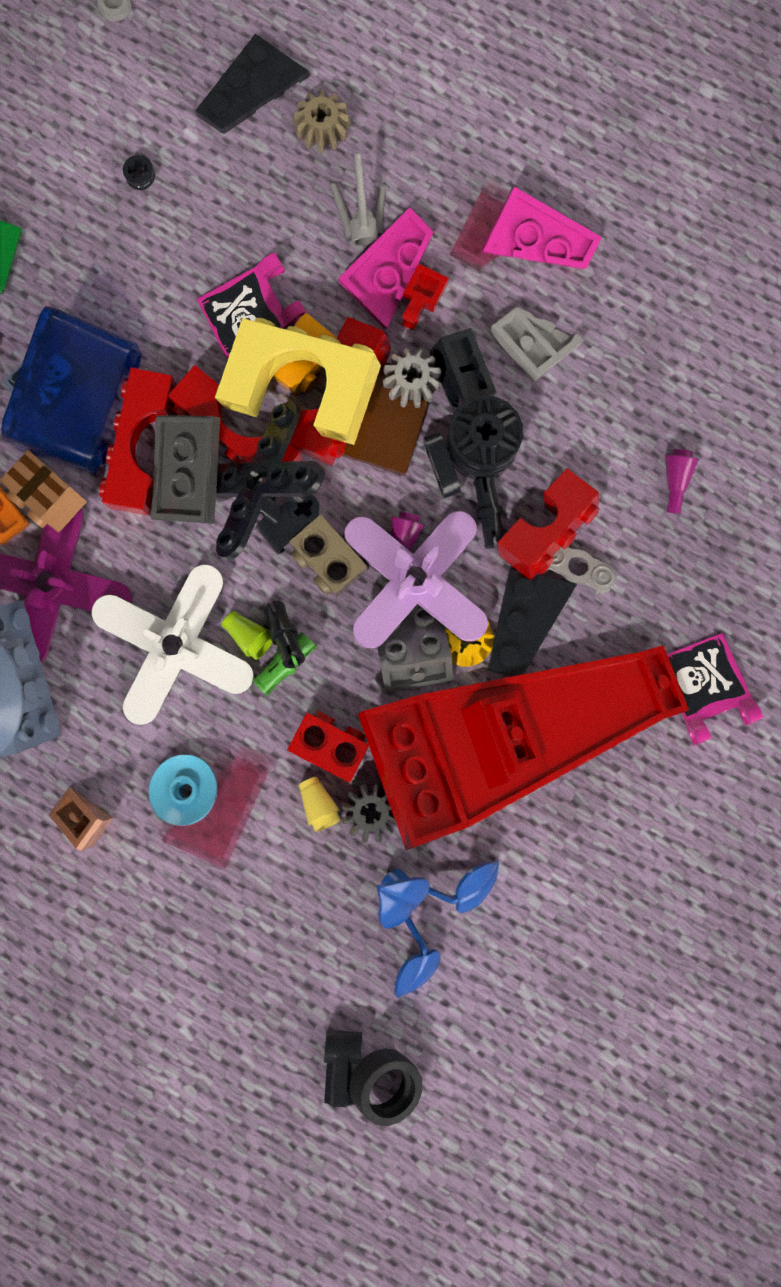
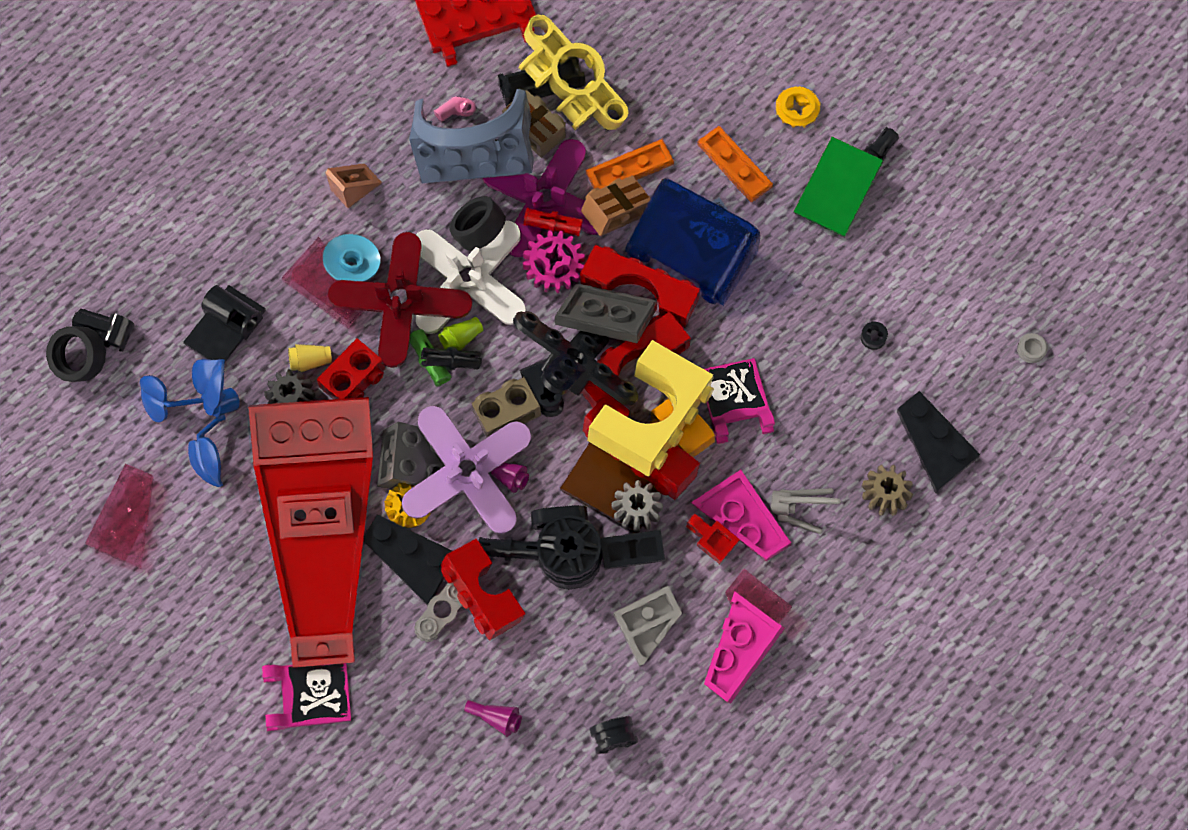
camera: 110 degrees right, 15 degrees down
(81, 560) = (553, 222): none -> red pin
(93, 665) = (477, 223): none -> black tyre
(116, 548) = (542, 259): none -> dark pink gear
(248, 710) = (397, 315): none -> dark red piece
(300, 919) = (217, 334): none -> black piece
(566, 959) = (124, 518): none -> clear pink wing
(670, 344) = (613, 734): none -> black wheel

